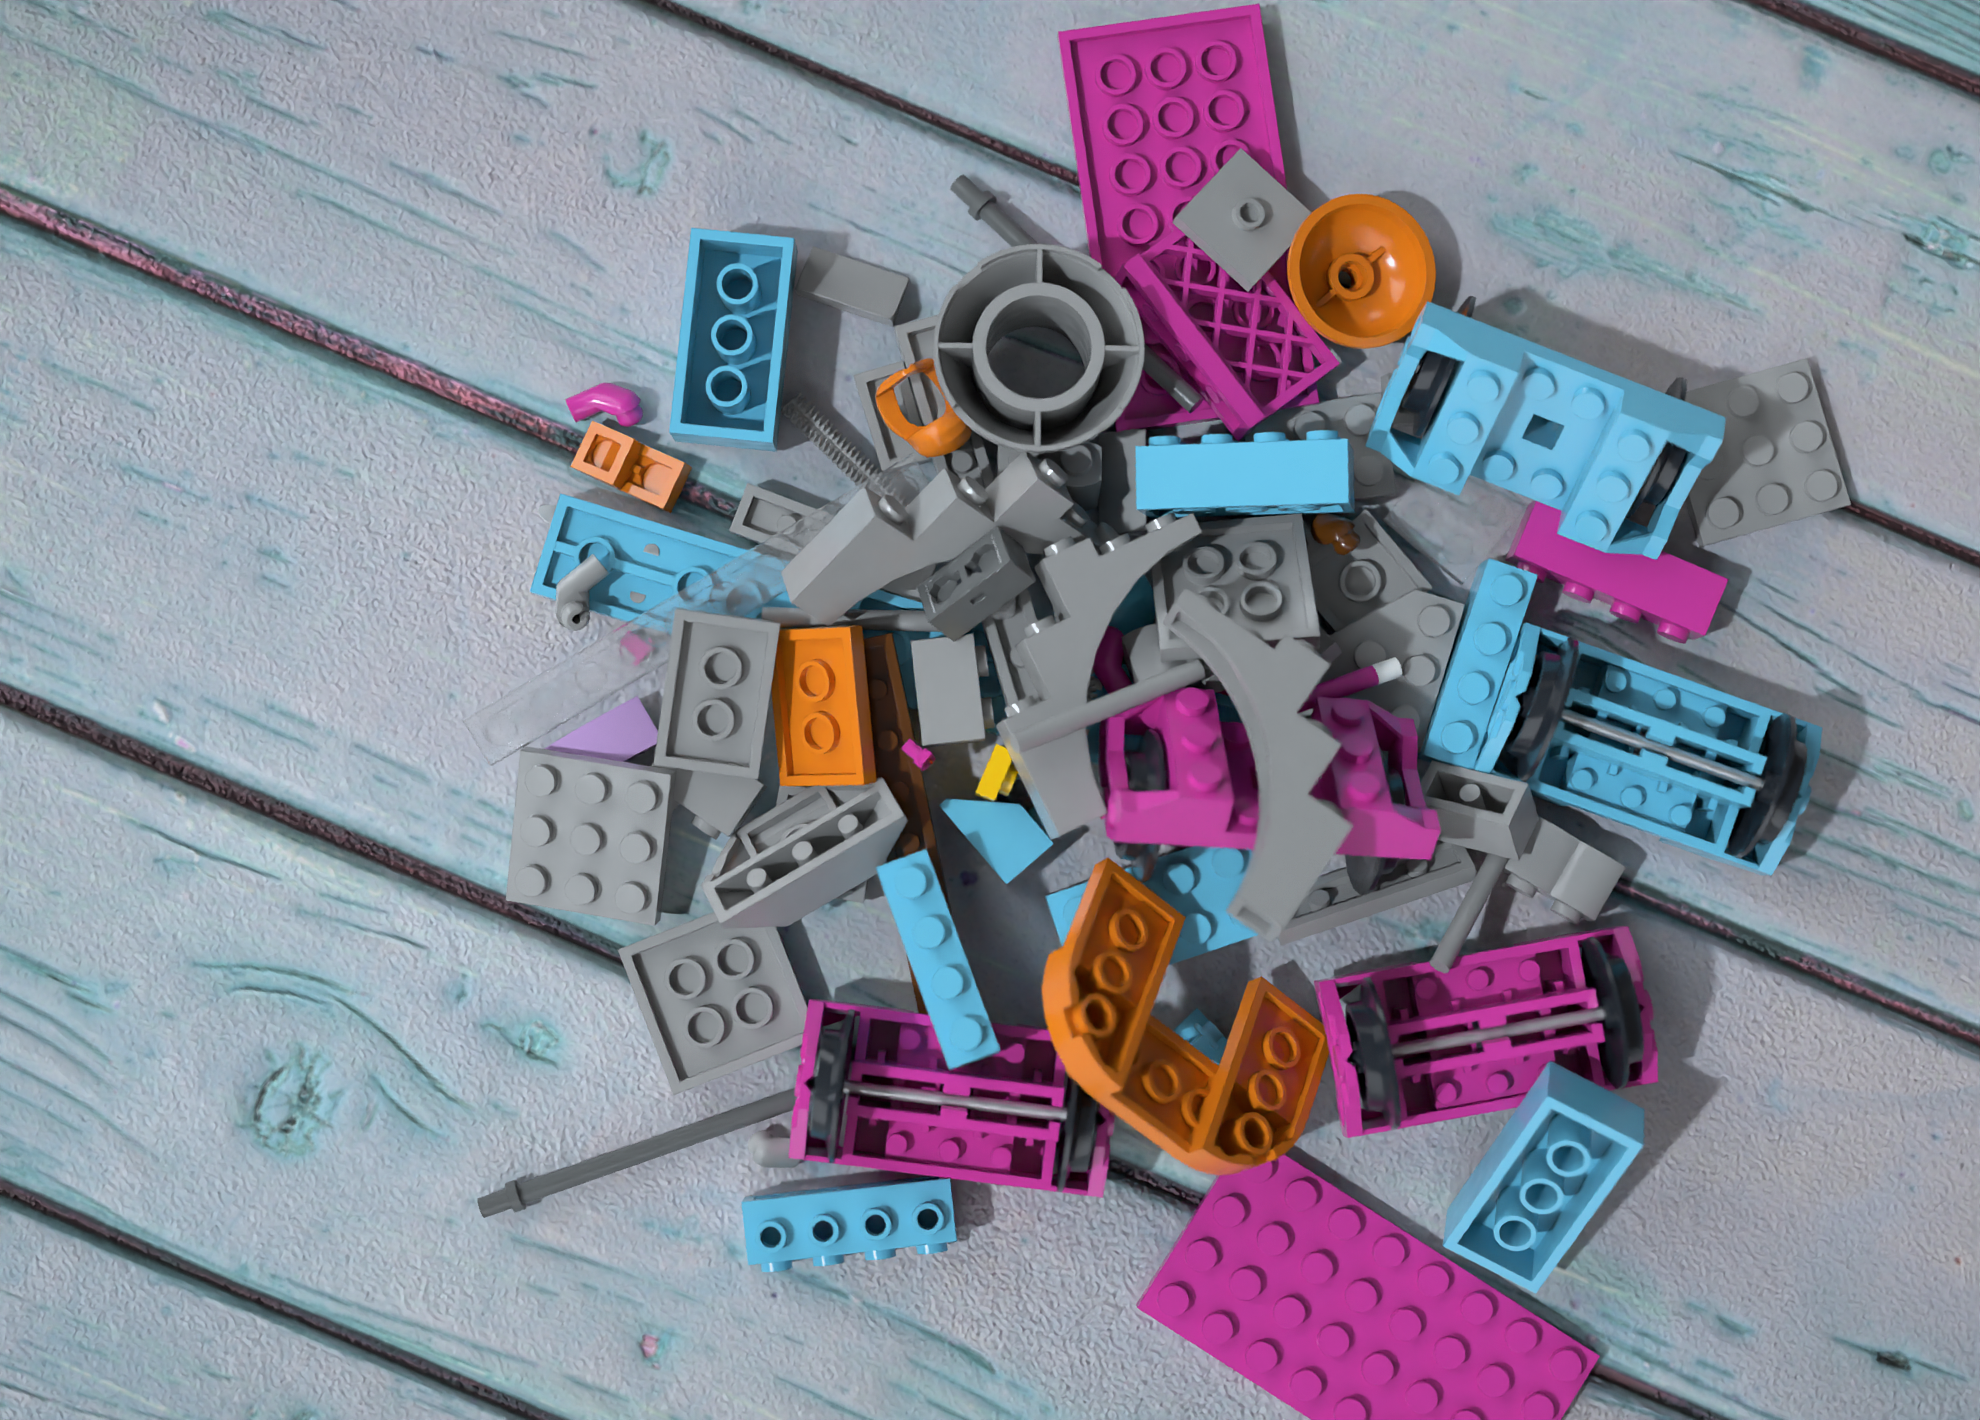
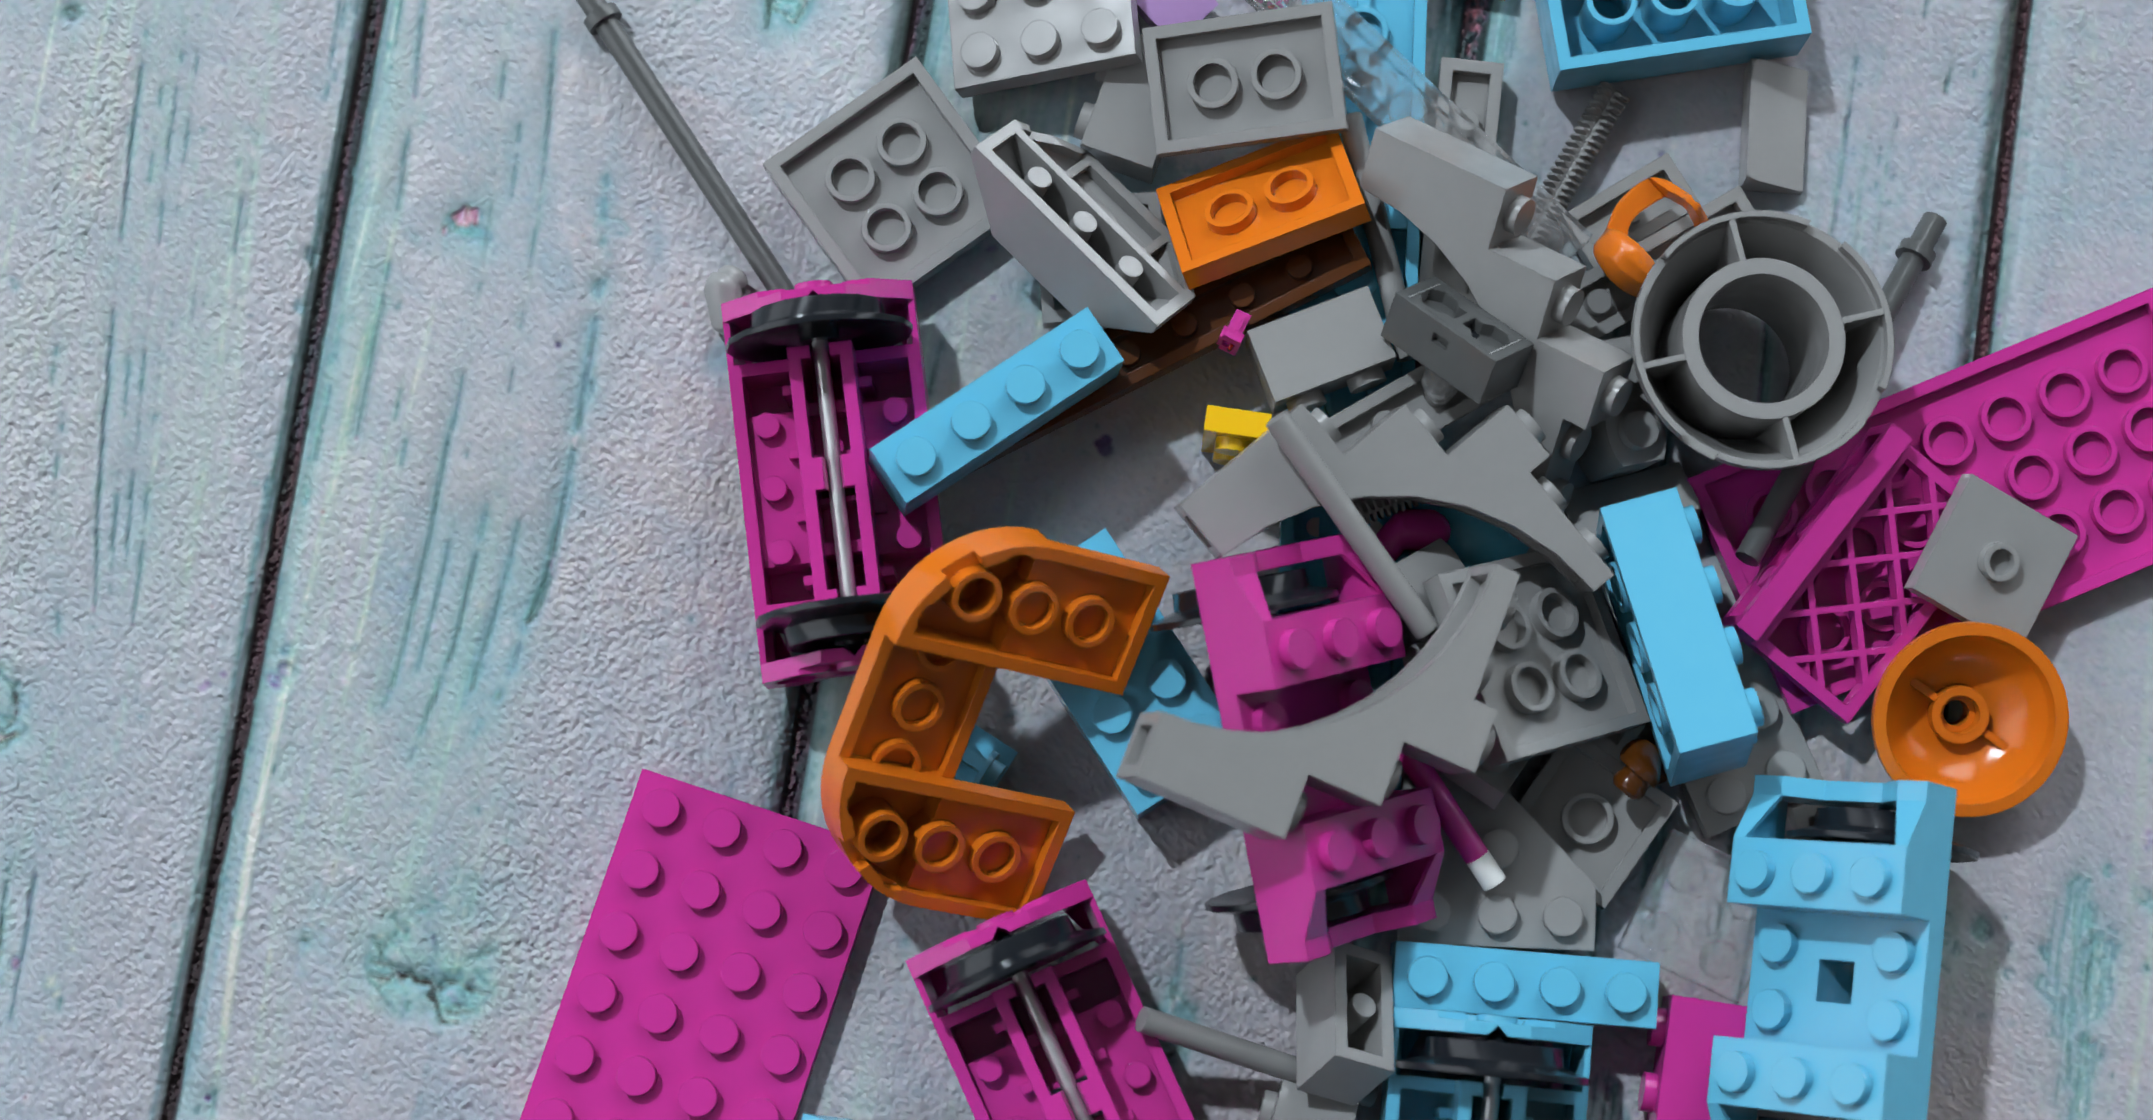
camera: 85 degrees right, 5 degrees down
(848, 1221) = (665, 402): medium azure brick -> none
(1000, 833) = (1164, 461): medium azure slope -> none
(1336, 903) = (1237, 960): light grey plate -> none

